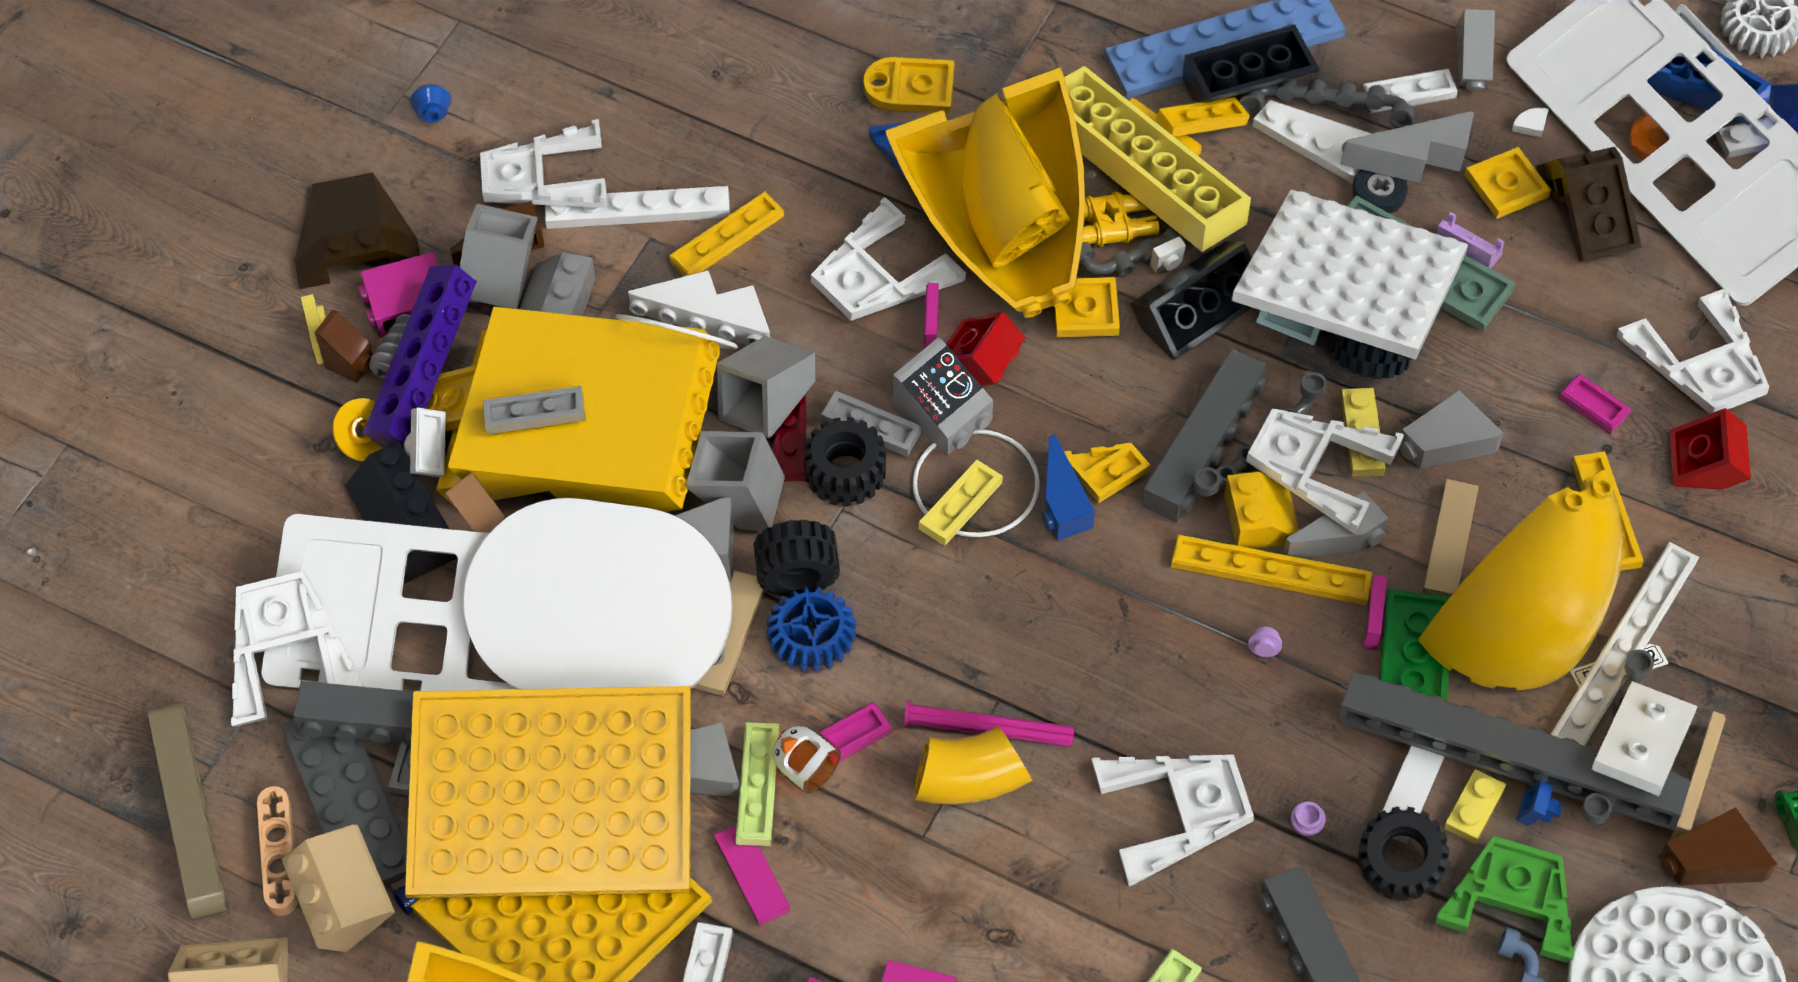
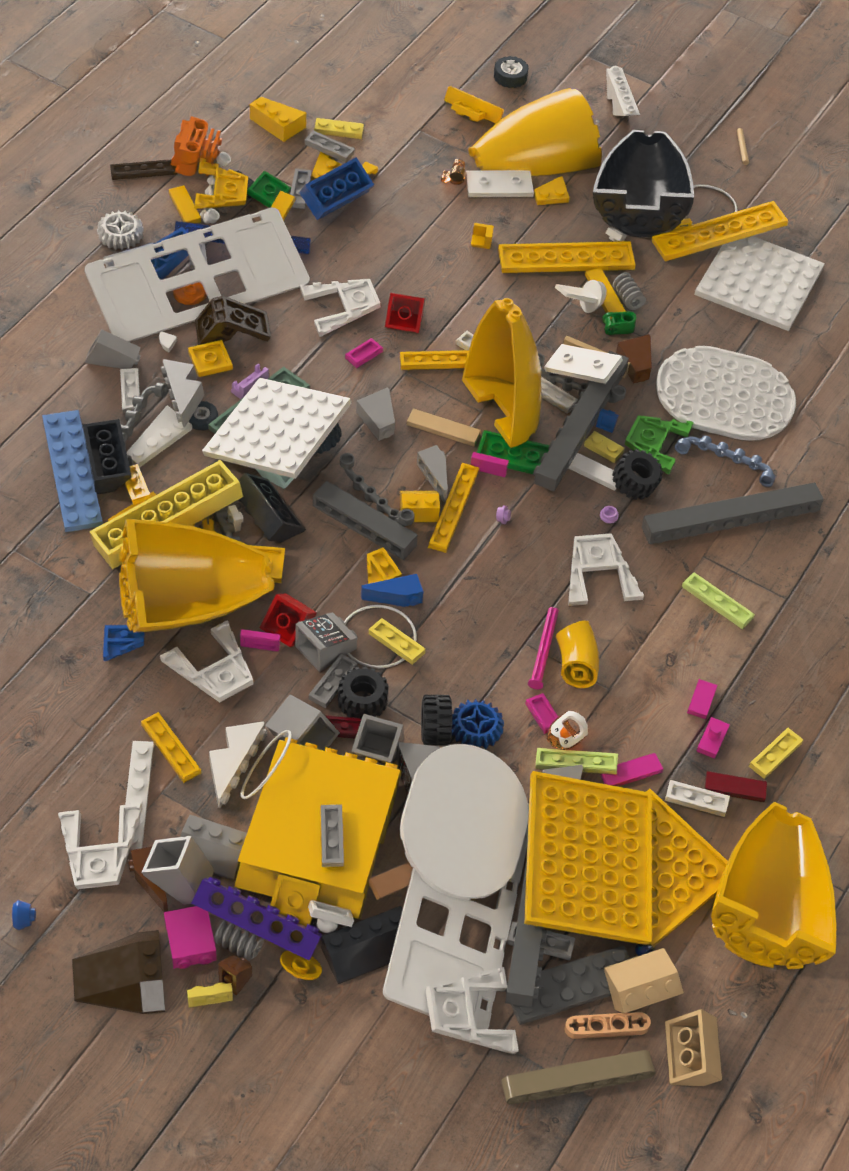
camera: 90 degrees left, 5 degrees down
(911, 84) = (67, 631): yellow tile -> none
(1006, 186) = (189, 574): yellow panel -> none
(1292, 447) = (390, 479): white wing -> none
(1360, 411) = (371, 452): light yellow plate -> none

